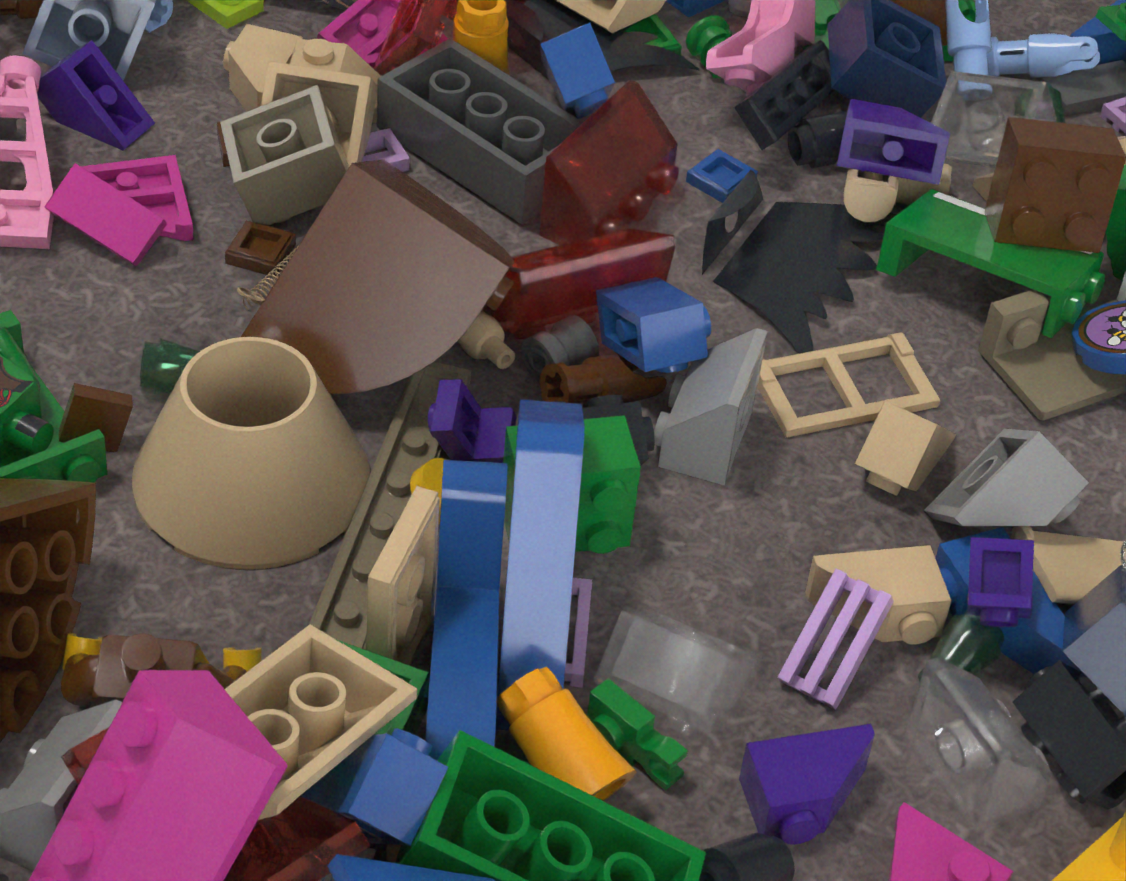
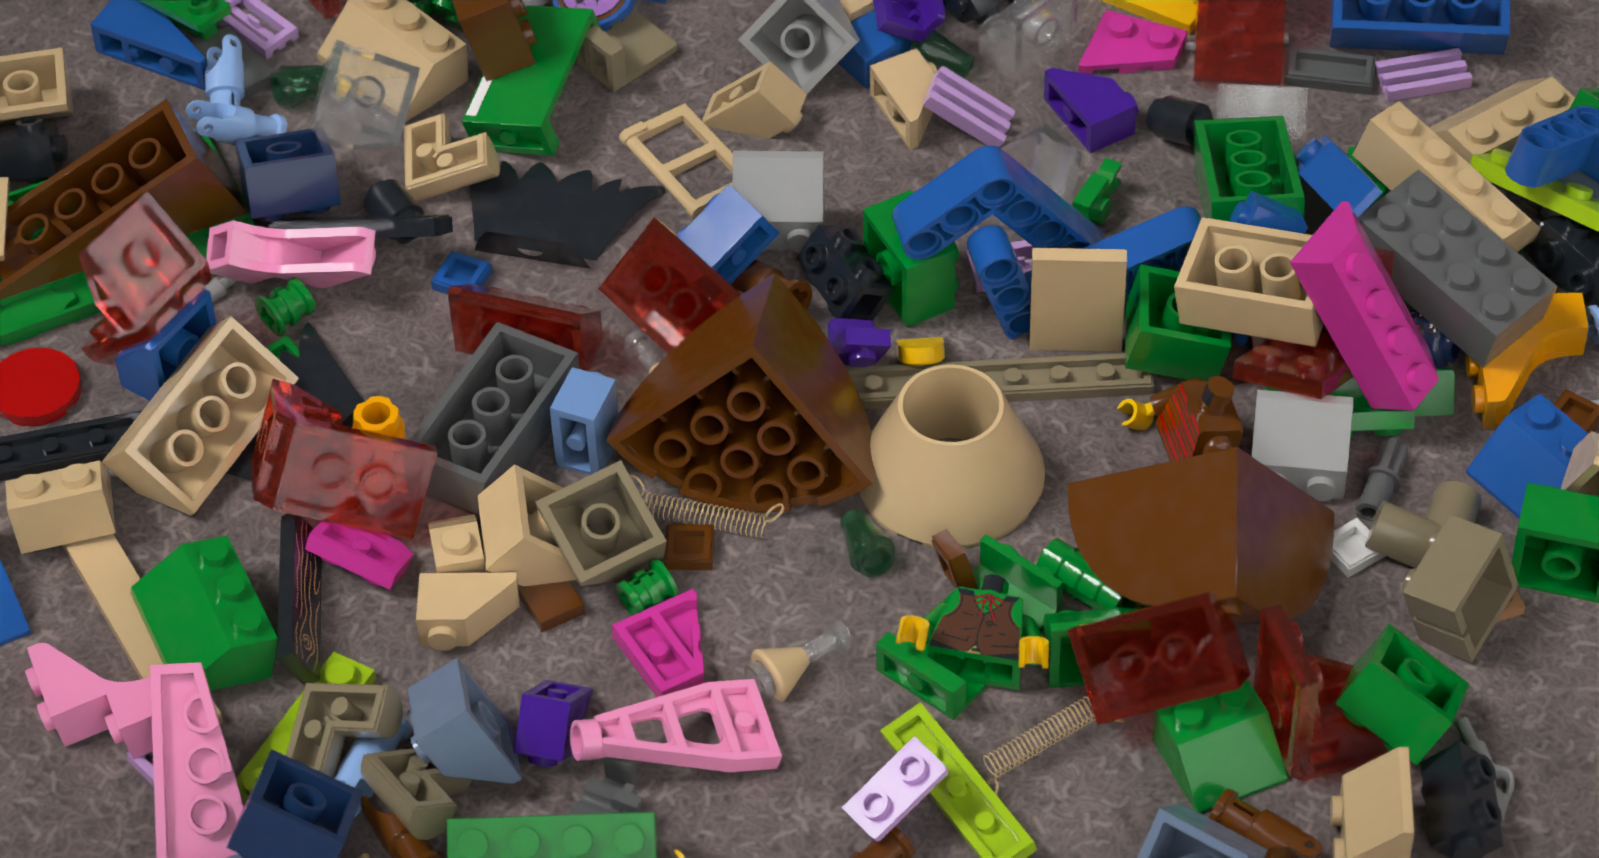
camera: 100 degrees left, 5 degrees up
(51, 260) = (781, 668): none -> piece
(105, 215) = (713, 642): dark pink tile -> none
(222, 197) = (646, 588): none -> green bush
(443, 161) = (582, 421): none -> medium blue brick
(561, 736) = (1148, 196): light orange plant -> none
(577, 71) = (445, 332): blue brick -> none
(892, 143) = (428, 143): dark purple slope -> none

